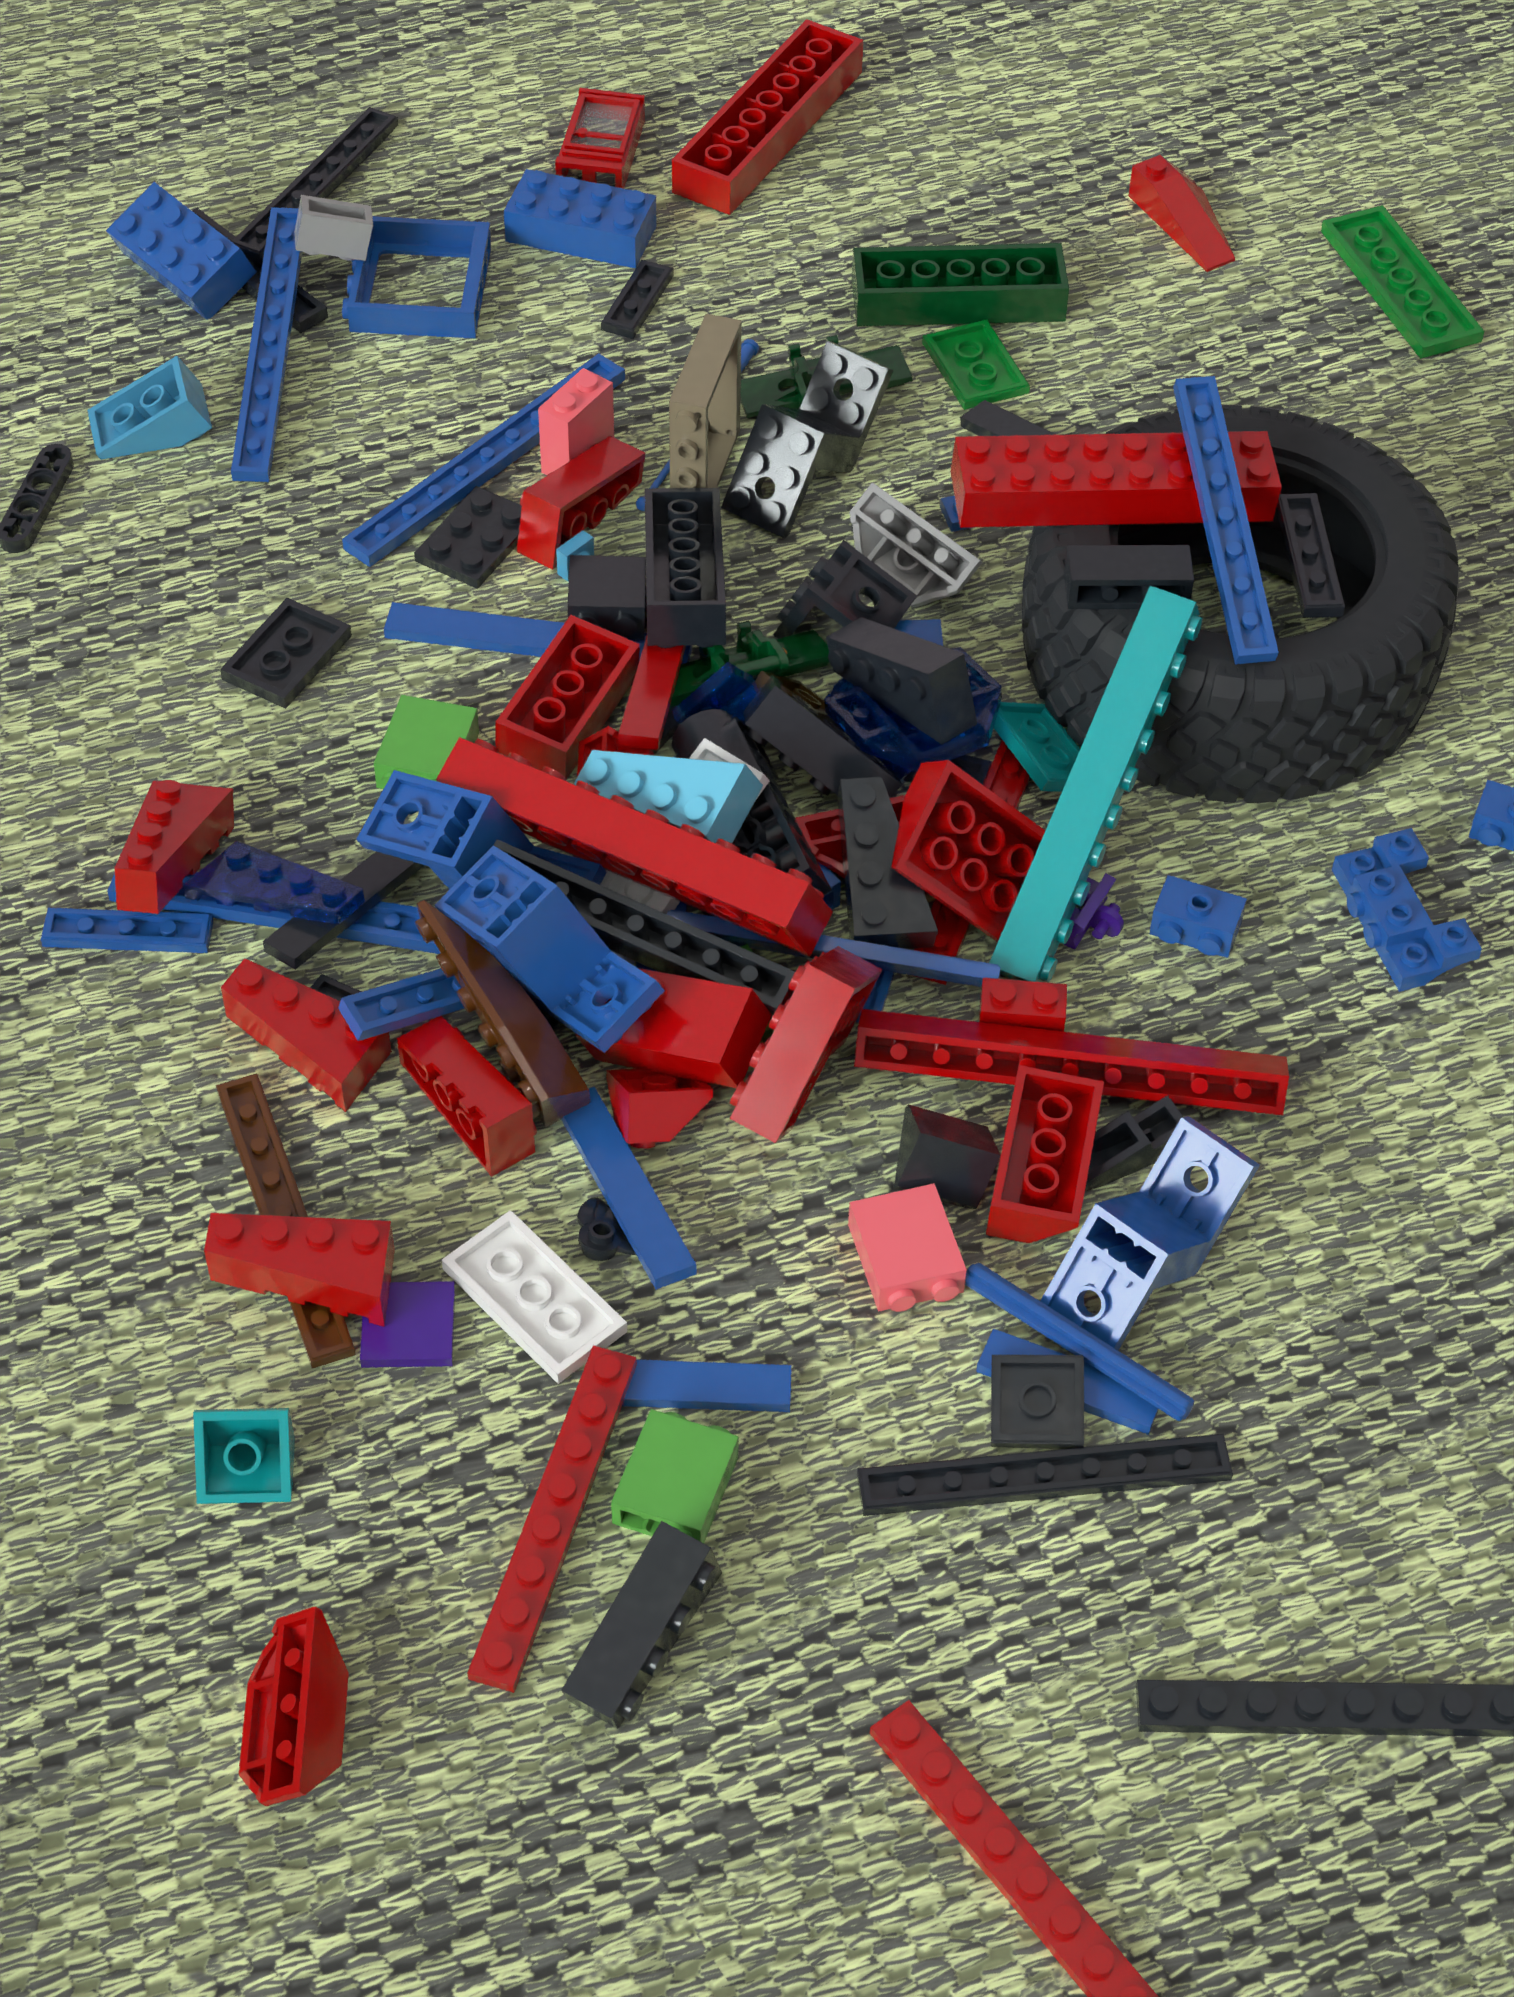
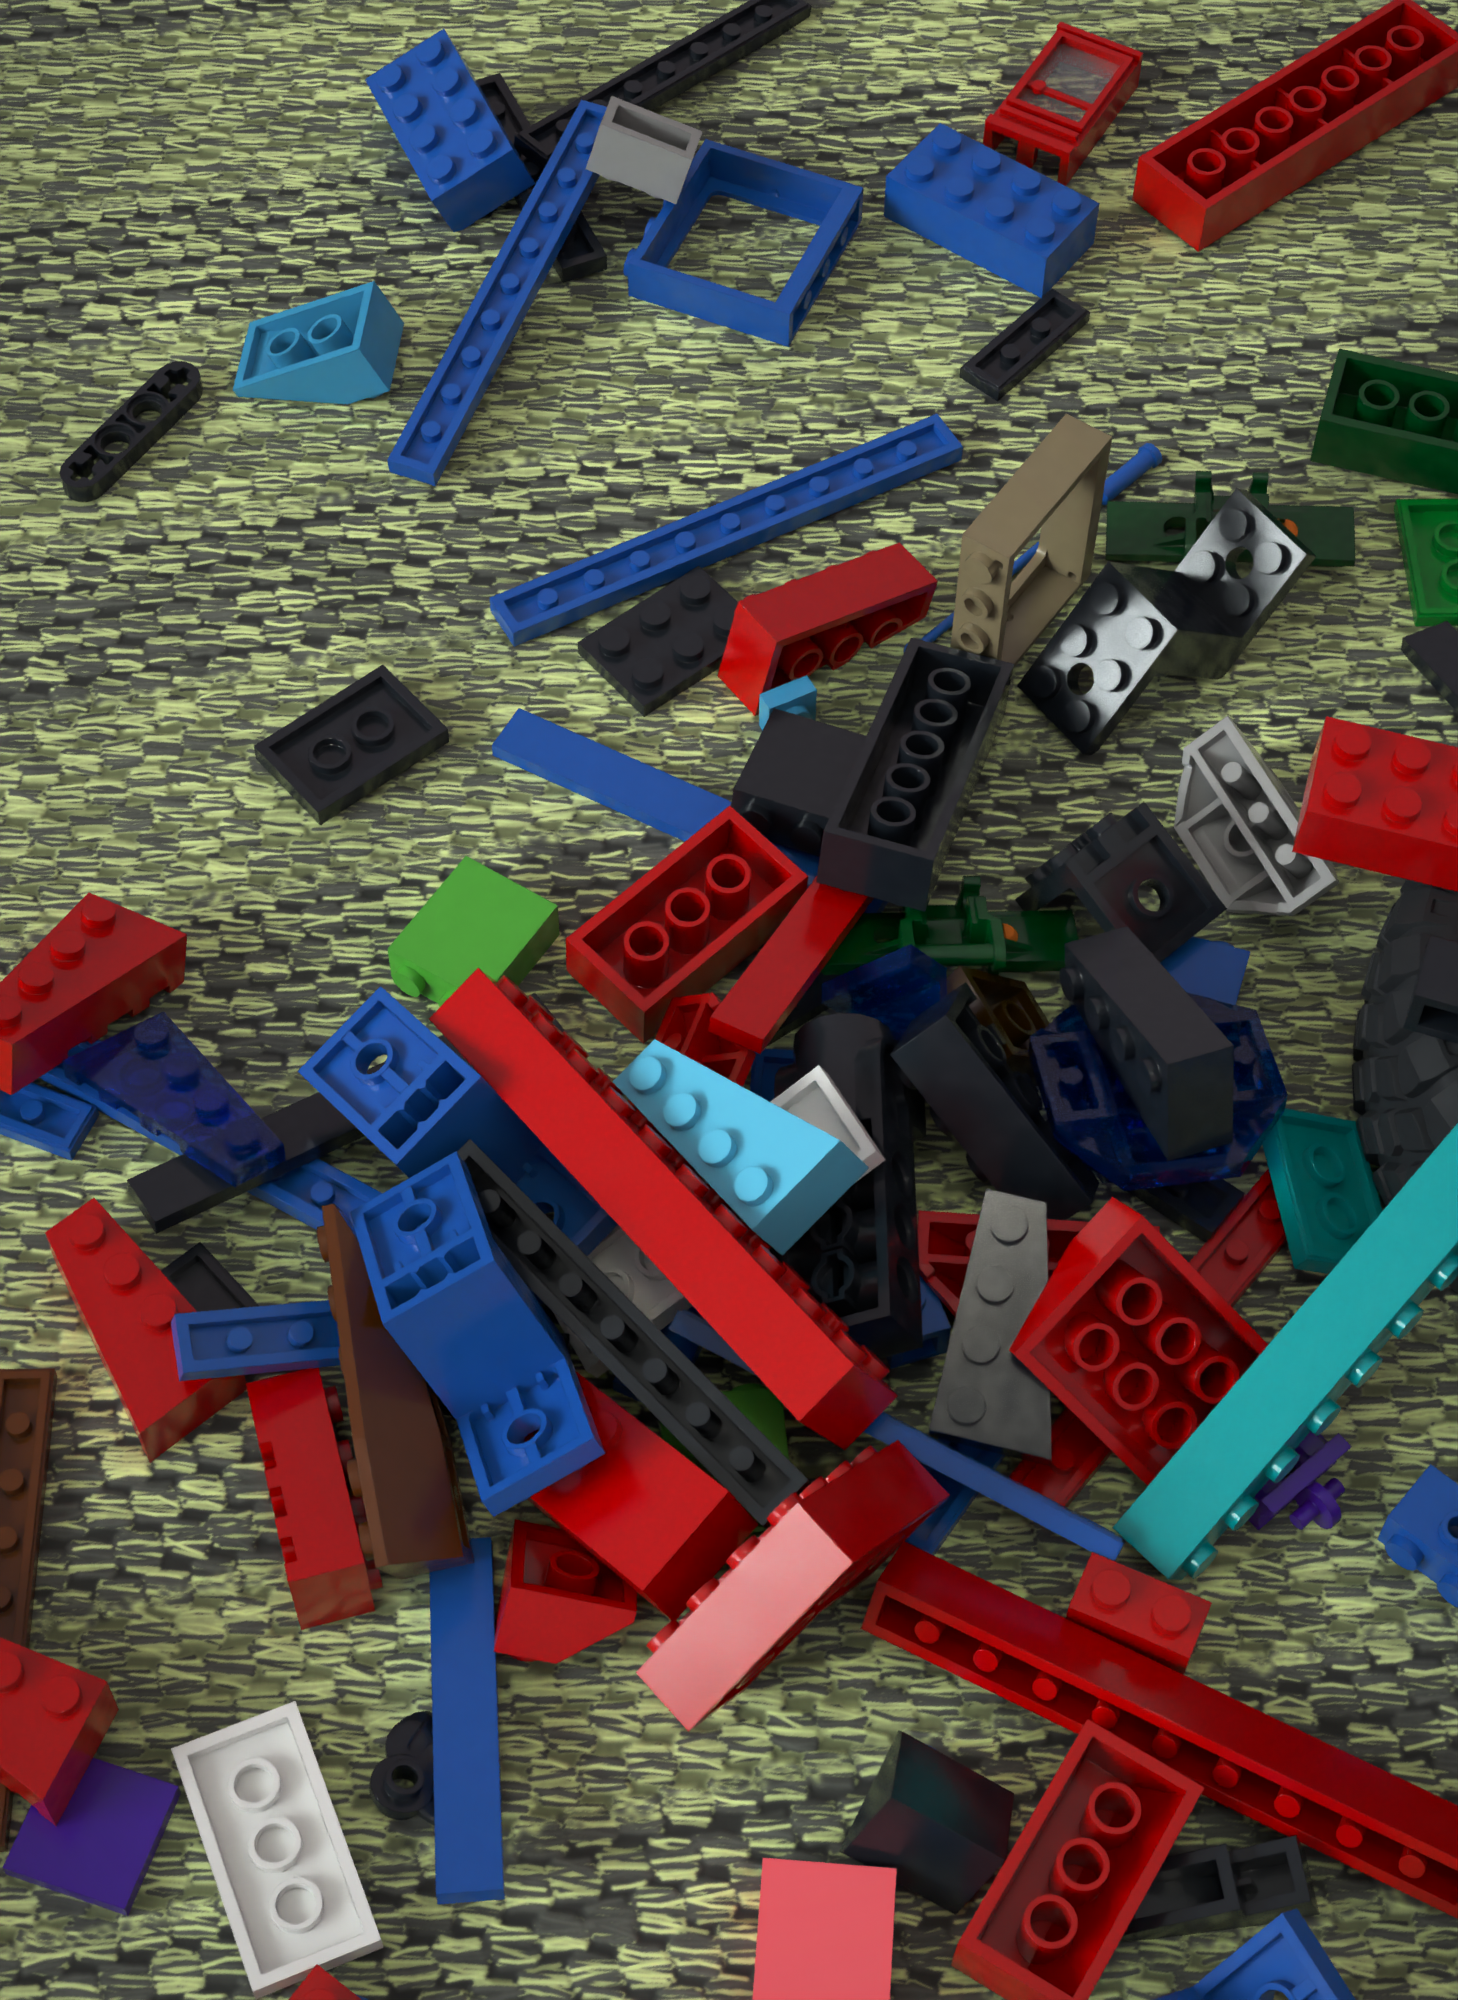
camera: 20 degrees right, 5 degrees up
(575, 419) = (856, 509): coral brick -> none

